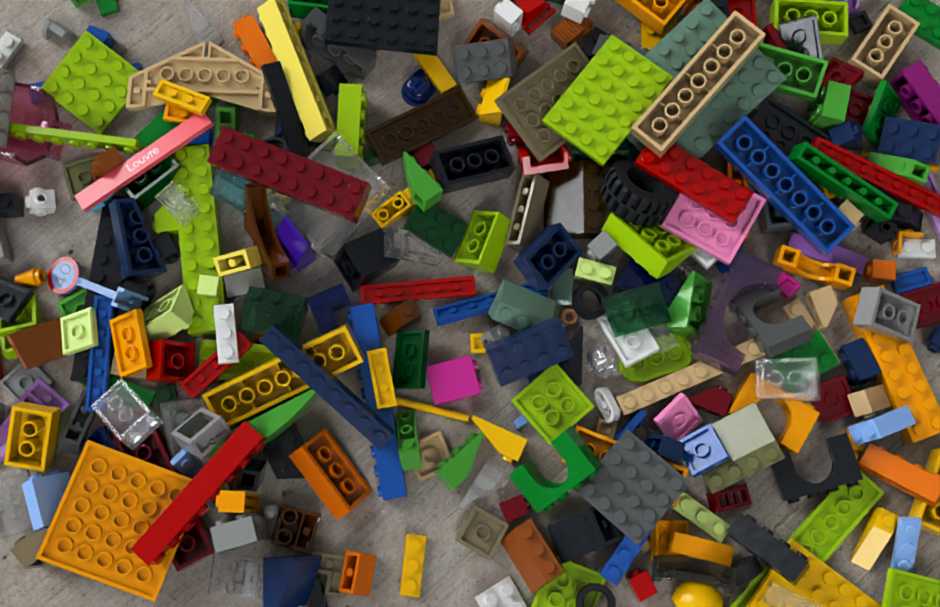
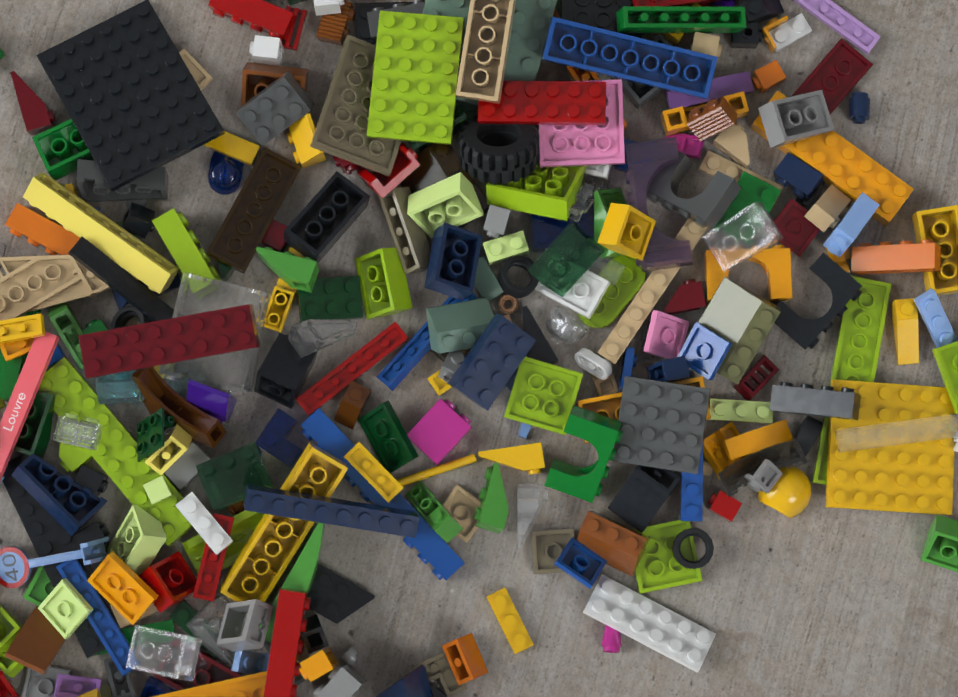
camera: 25 degrees left, 5 degrees up
(232, 239) = (151, 433): none -> dark green hinge
(299, 529) = (382, 656): reddish brown slope -> none
(330, 474) = (383, 587): orange slope -> none
(498, 556) = (580, 563): none -> blue slope
(514, 507) = (568, 511): dark red brick -> none
(572, 207) = (444, 202): none -> yellowish green slope
(679, 273) = (584, 200): none -> clear plate
(689, 583) = (764, 477): none -> light grey bracket
(700, 315) = (626, 231): none -> yellow slope
(819, 273) = (711, 118): none -> dark orange brick
(911, 280) = (802, 66): blue tile -> none

